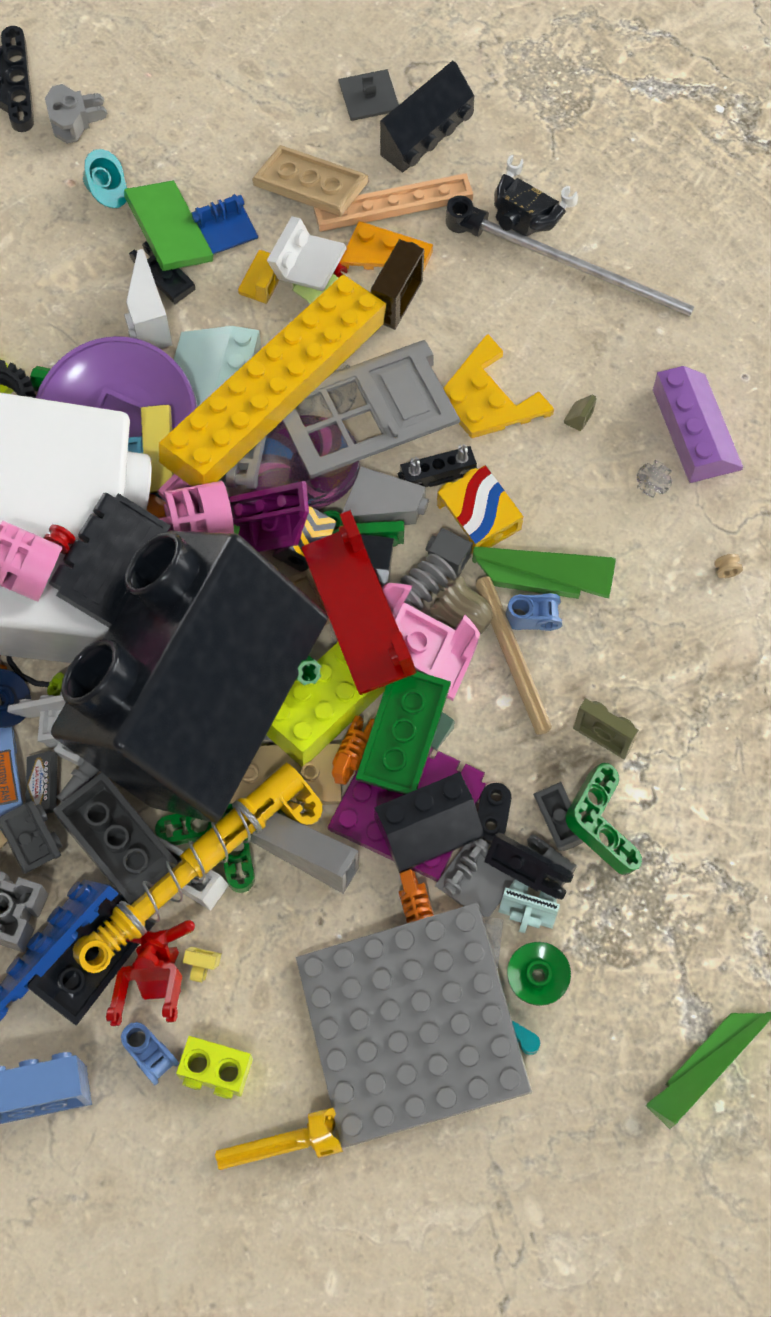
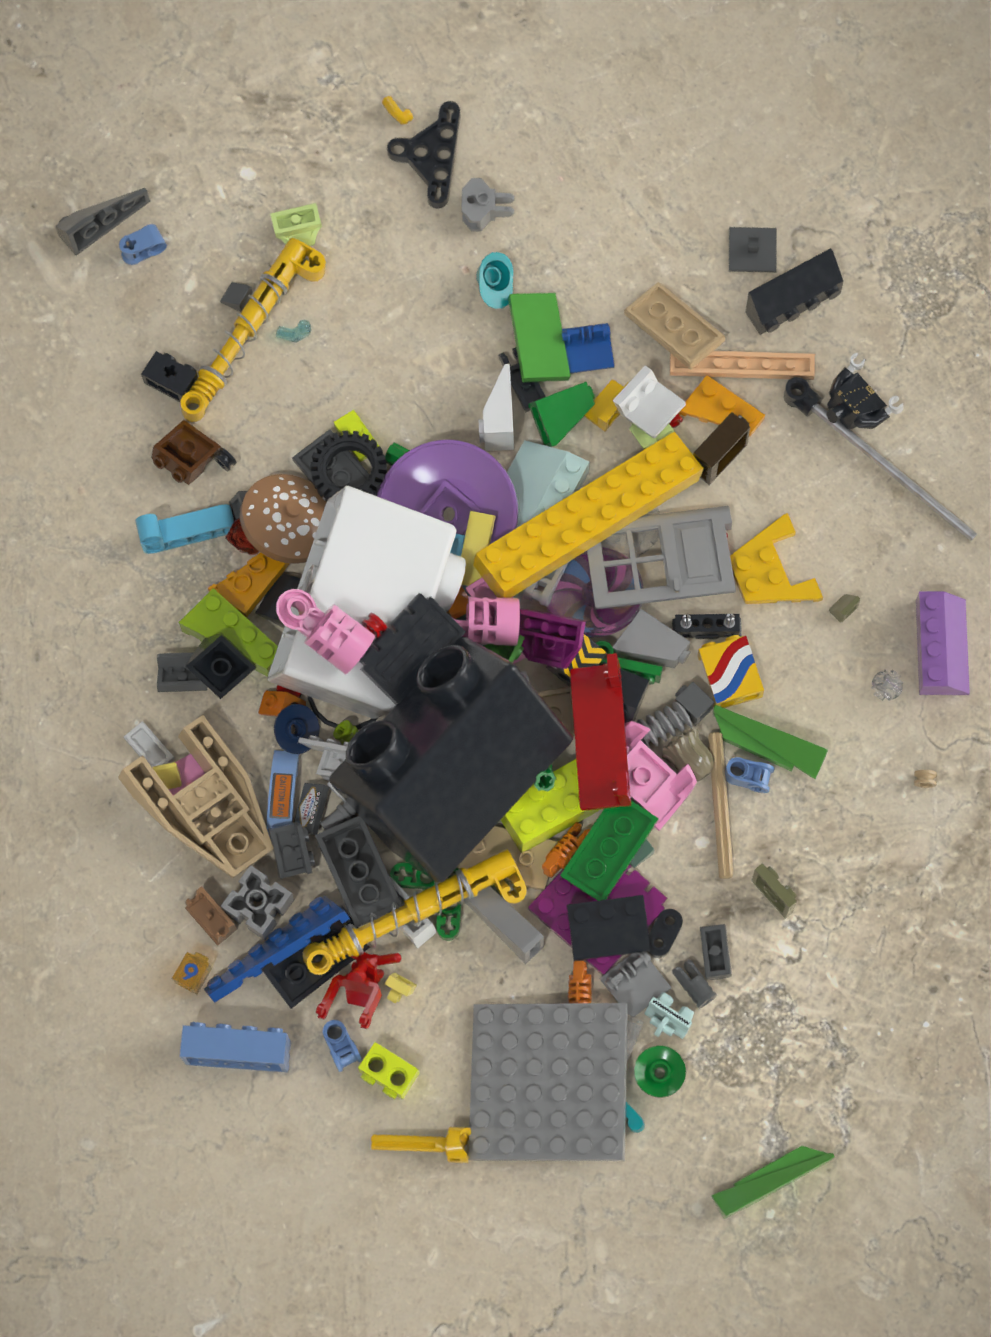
camera: 20 degrees right, 5 degrees up
(212, 290) = (561, 412): none -> green slope
(527, 866) = (676, 985): black hinge -> none
(626, 856) = (740, 964): green beam -> none

